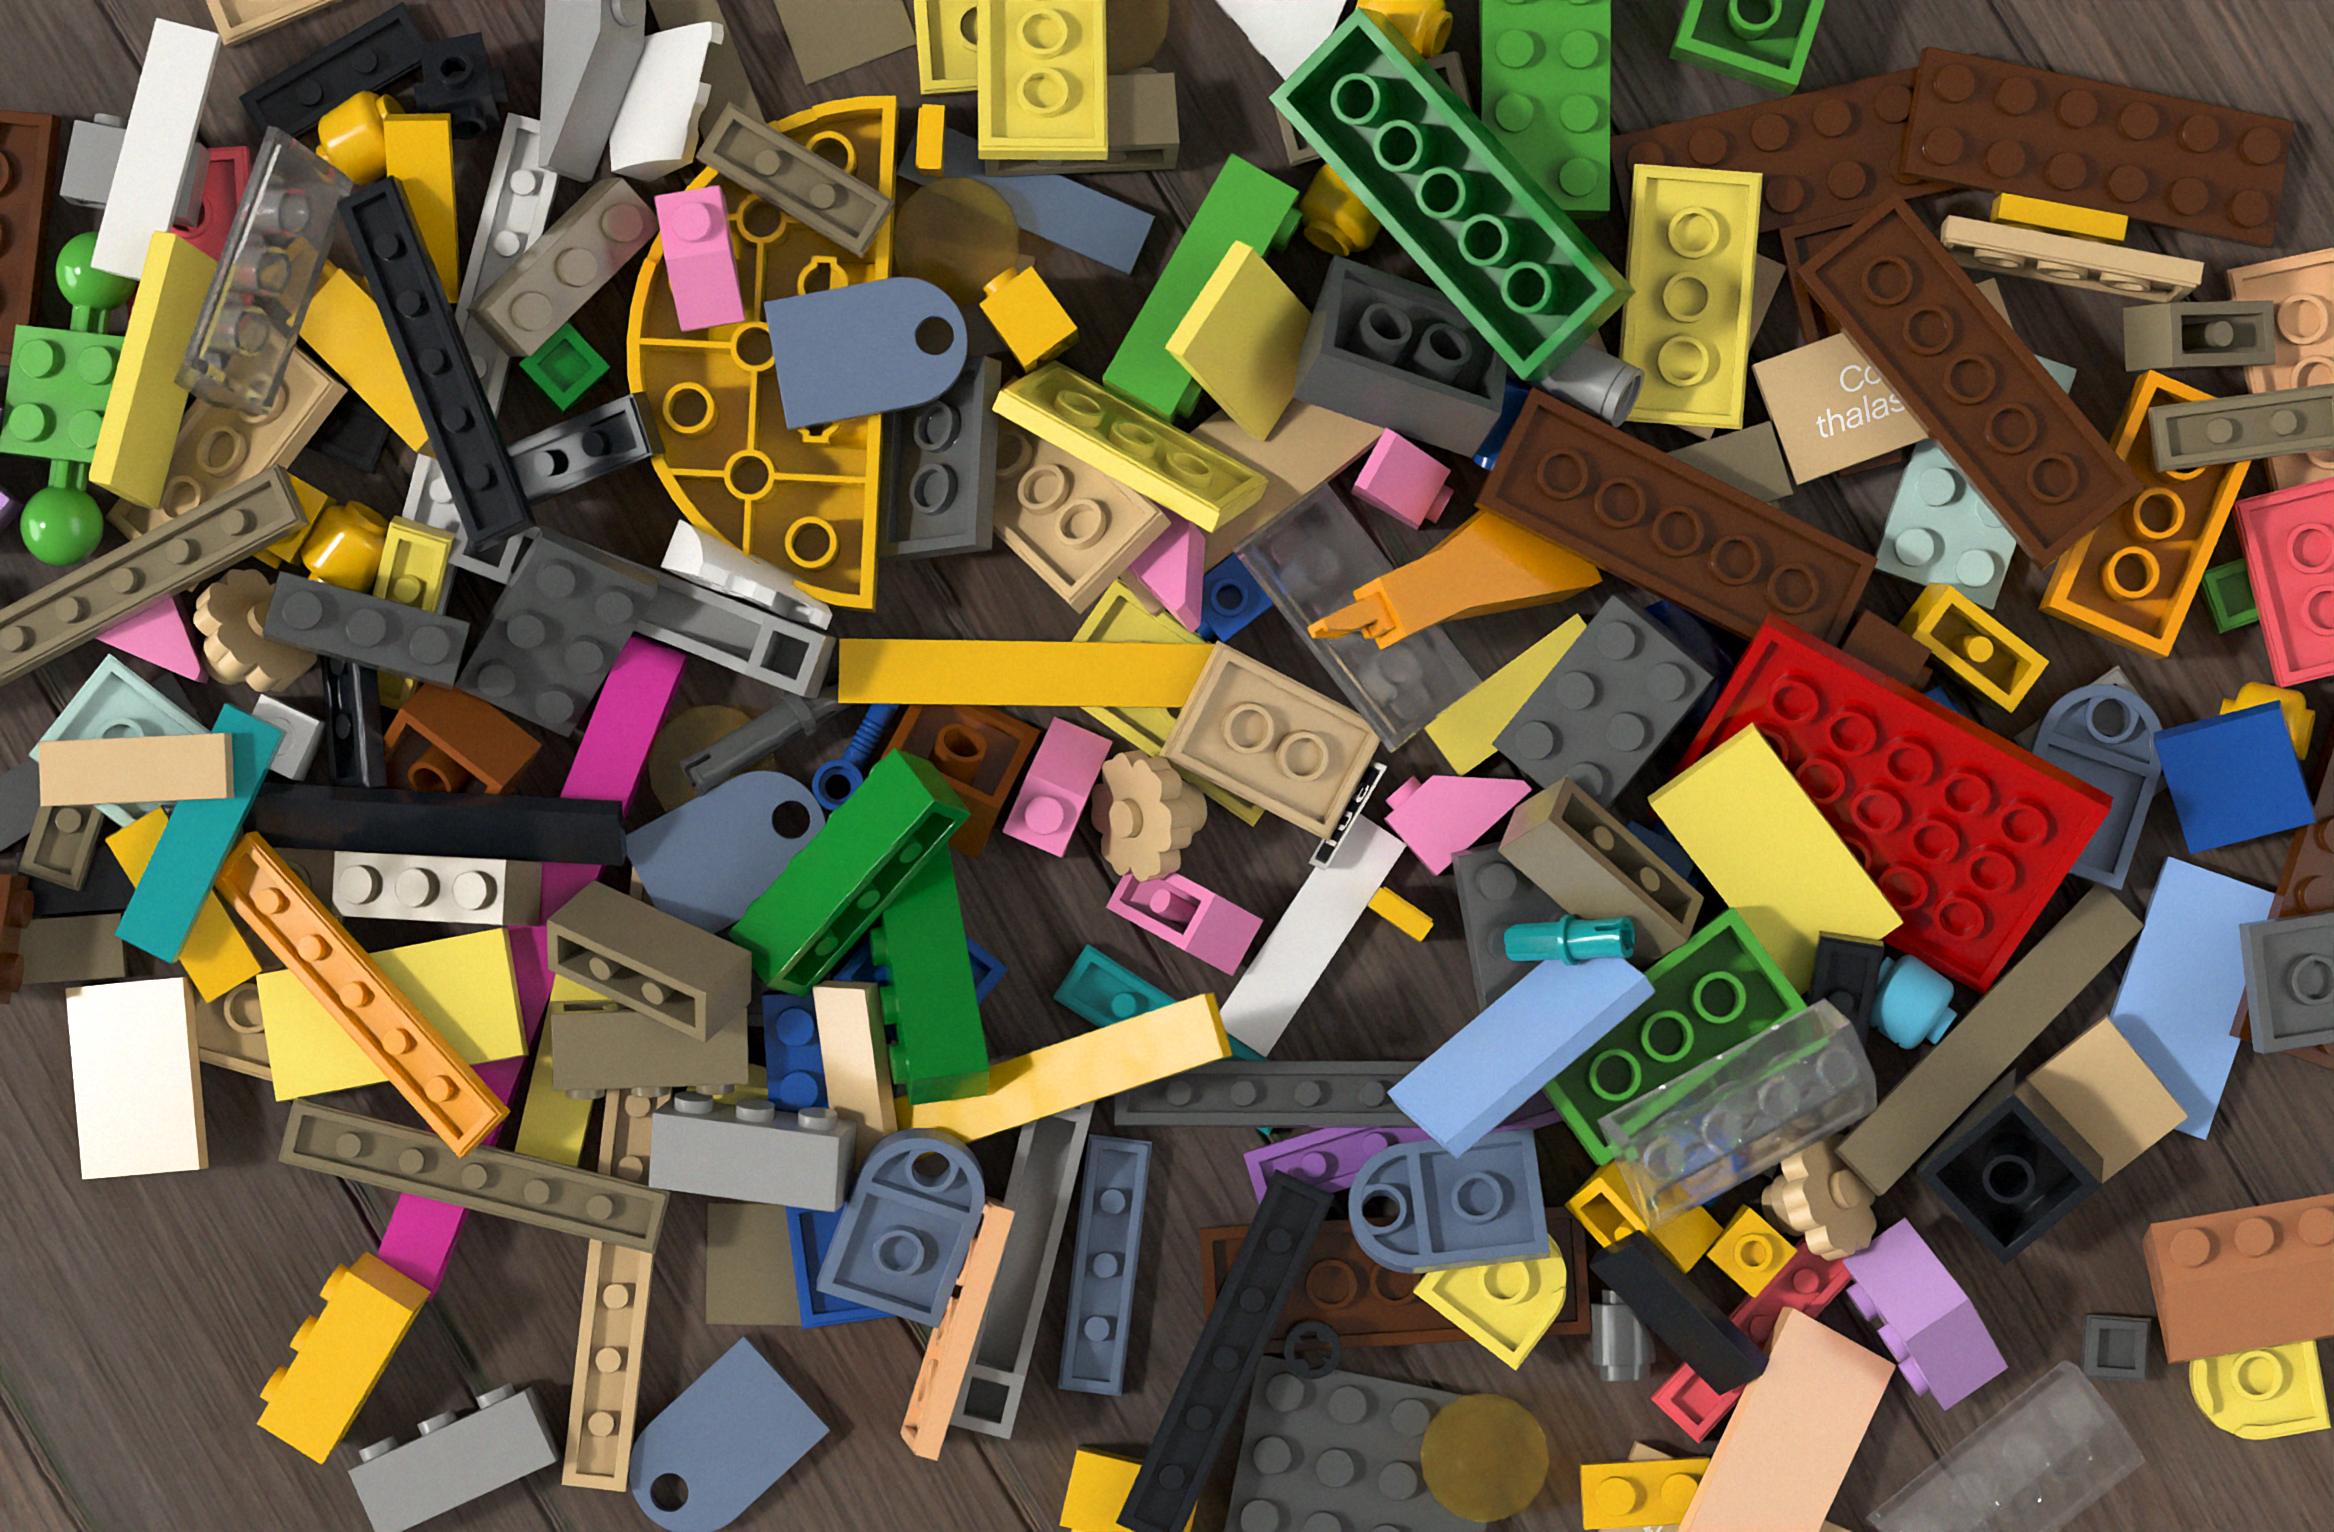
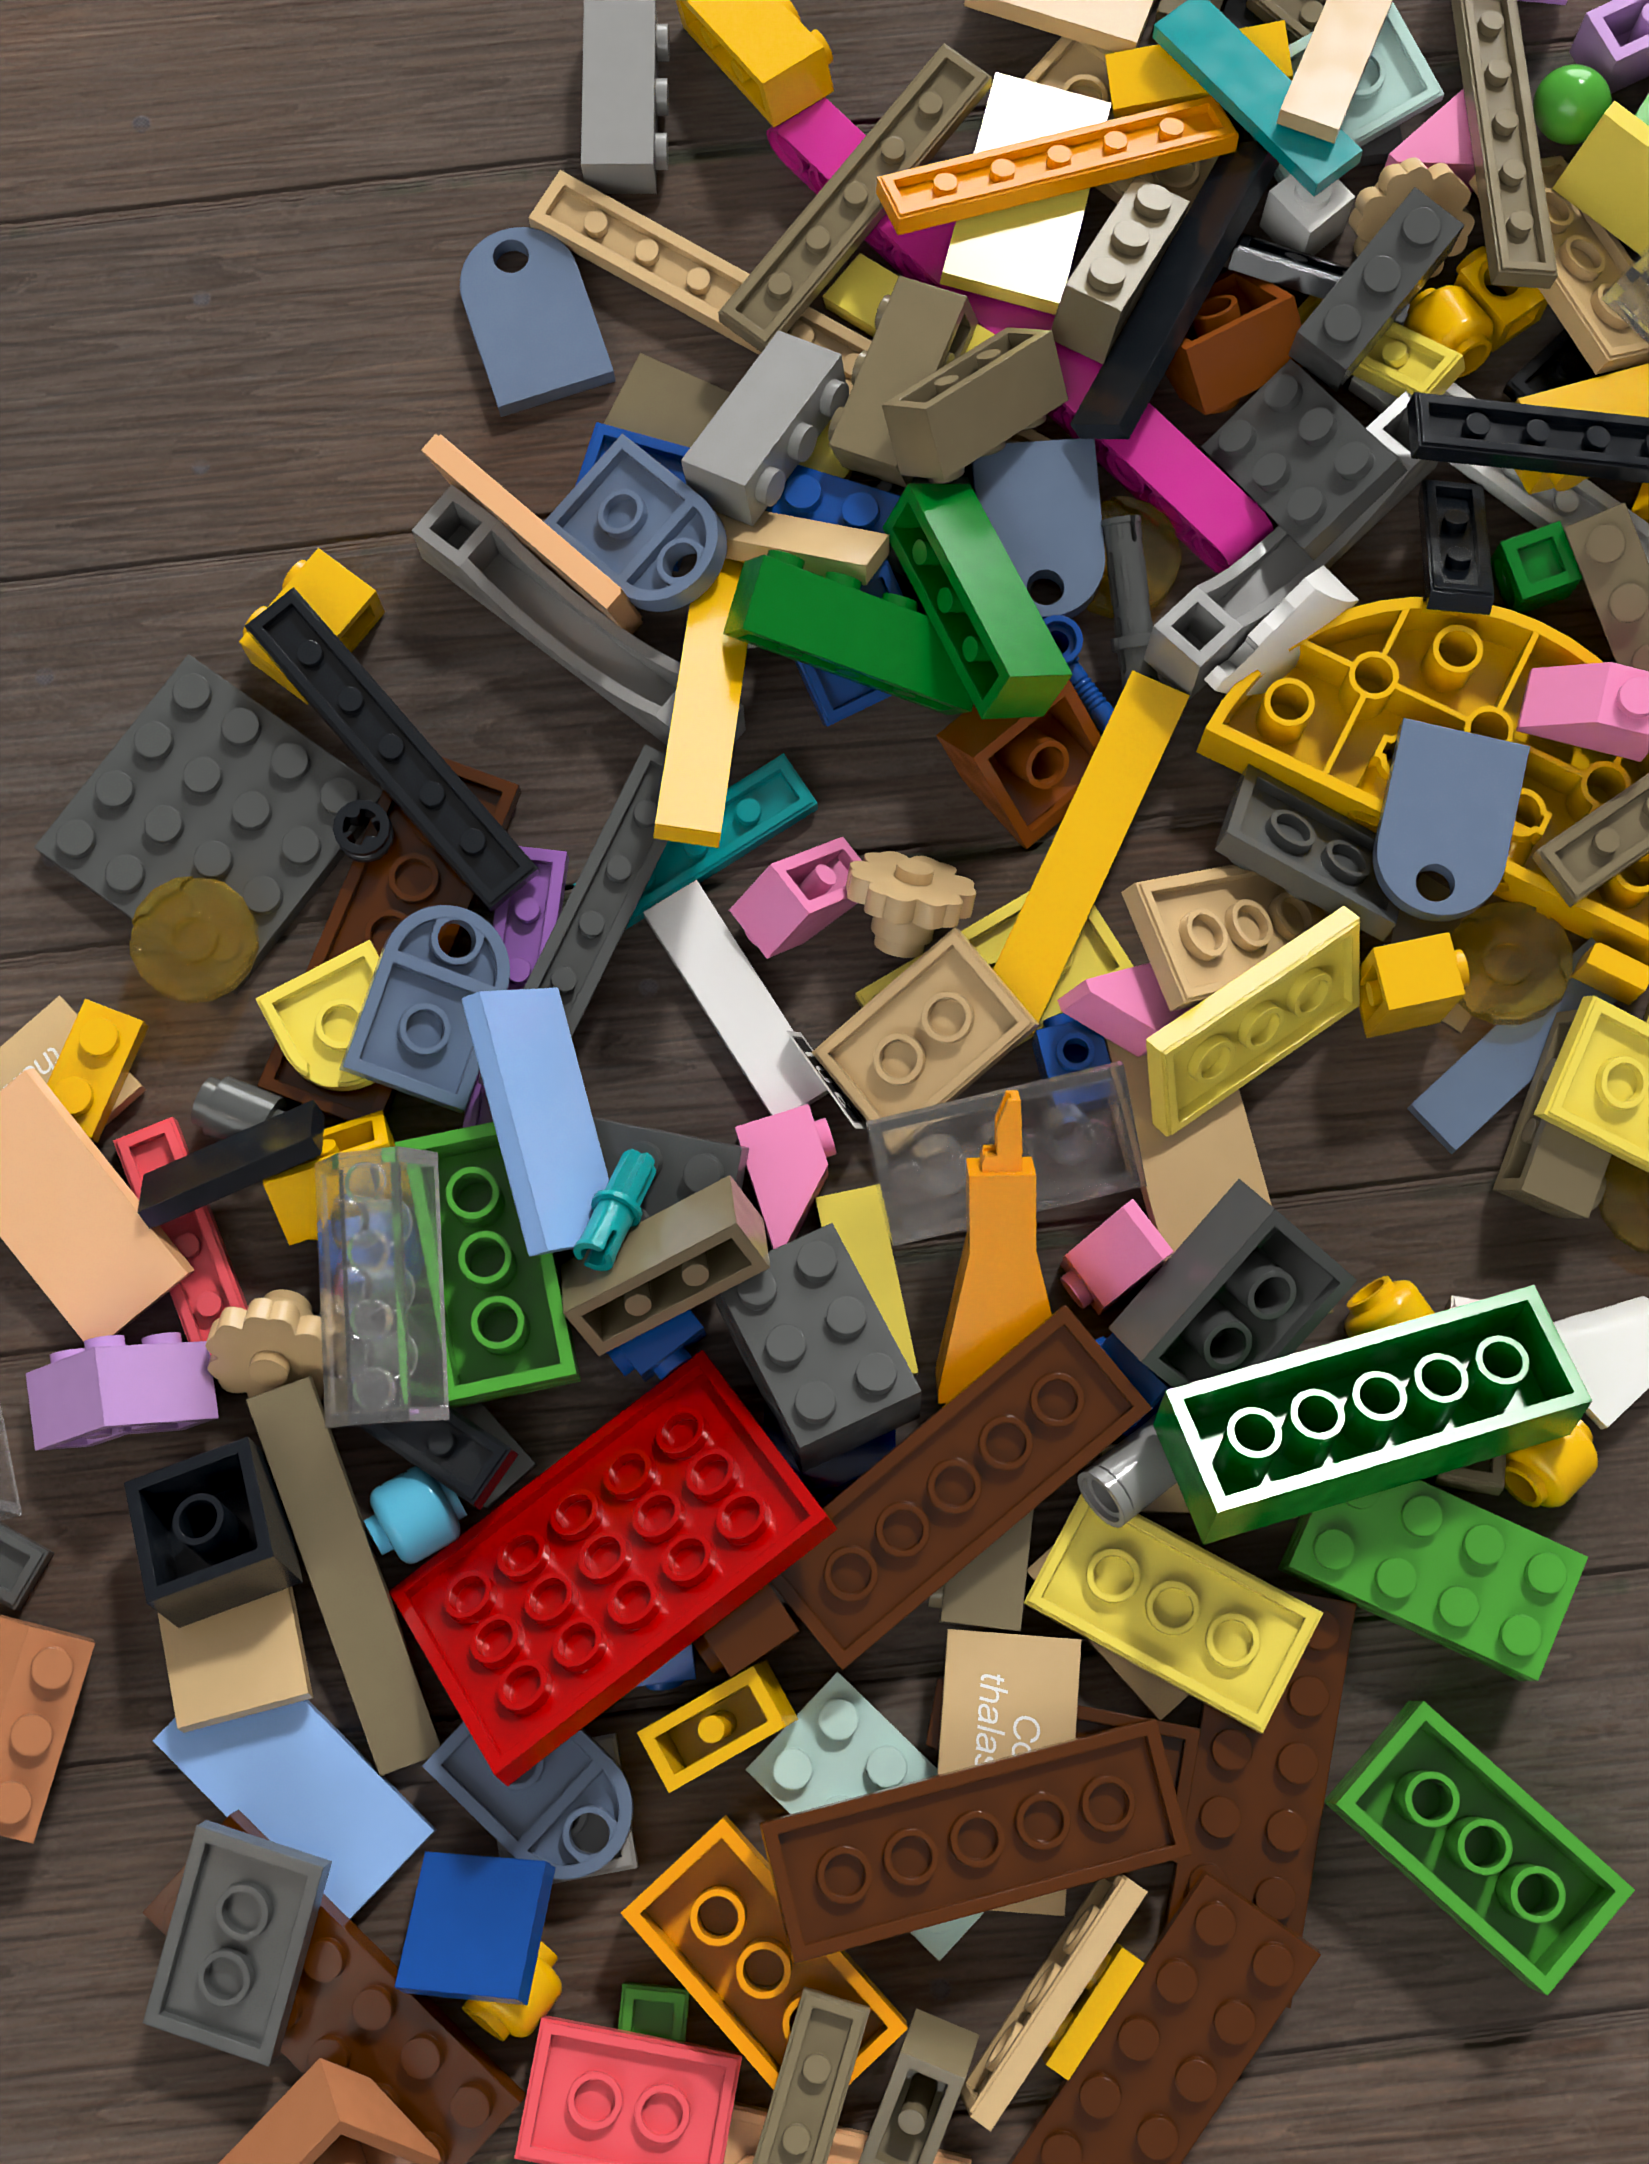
camera: 115 degrees right, 10 degrees down
(1057, 787) = (967, 832): bright pink slope -> none
(1105, 1264) = (528, 699): sand blue tile -> none
(1240, 207) = (1369, 1152): bright green brick -> none
(1244, 340) = (1315, 1156): light yellow tile -> none
(1400, 913) = (715, 1085): yellow tile -> none
(1749, 1251) = (258, 1259): yellow brick -> none
(1771, 853) = (610, 1440): light yellow tile -> none

